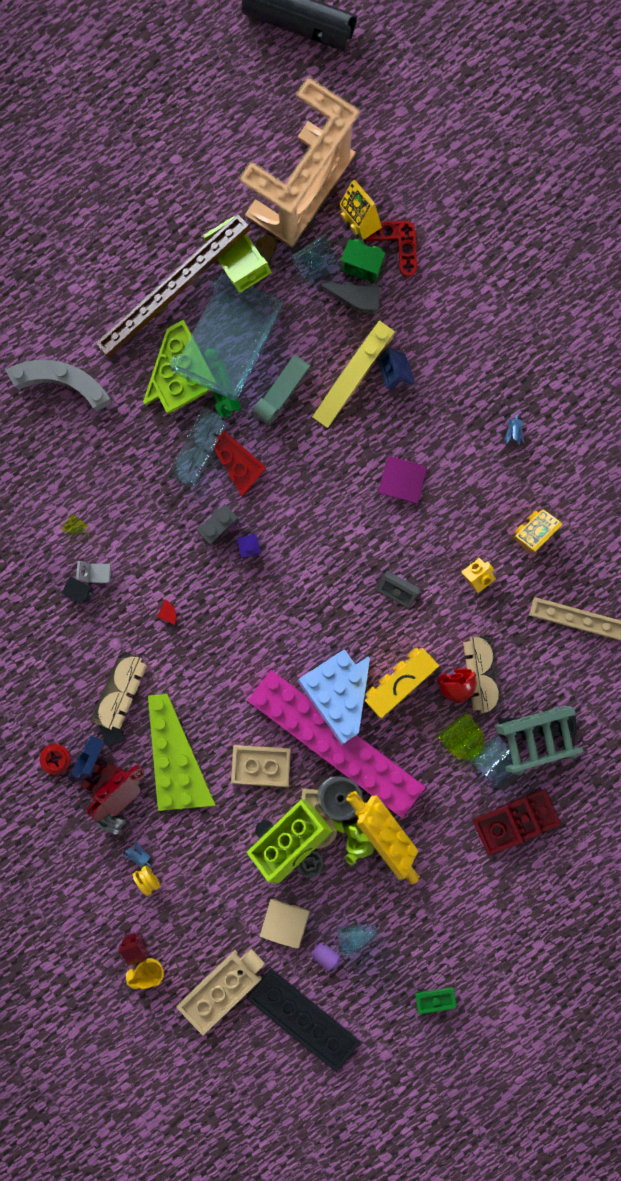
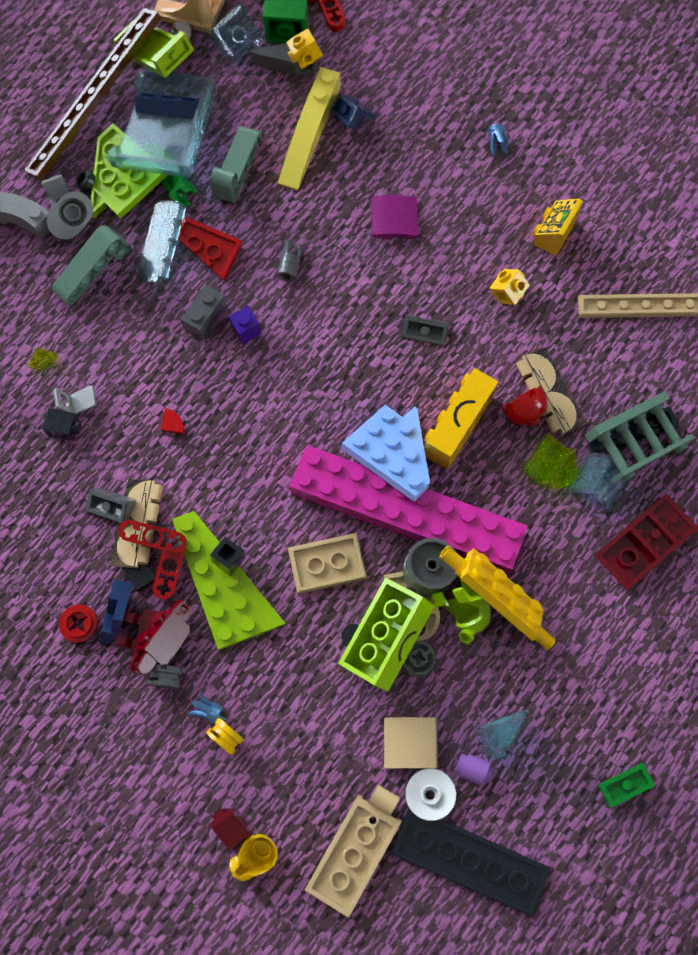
camera: 10 degrees left, 15 degrees down
(101, 669) = (109, 504): none -> dark grey slope
(119, 370) = (55, 188): none -> light grey bracket
(125, 402) = (69, 215): none -> light grey piece
(133, 452) = (89, 262): none -> sand green beam
(137, 724) = (167, 552): none -> red beam
(146, 368) = (85, 180): none -> black tile
(183, 744) = (227, 556): none -> black brick
(235, 315) = (166, 105): none -> dark blue slope
(292, 975) = (441, 786): none -> white dish
(300, 499) = (289, 262): none -> dark grey hinge
(368, 303) = (303, 49): none -> yellow brick

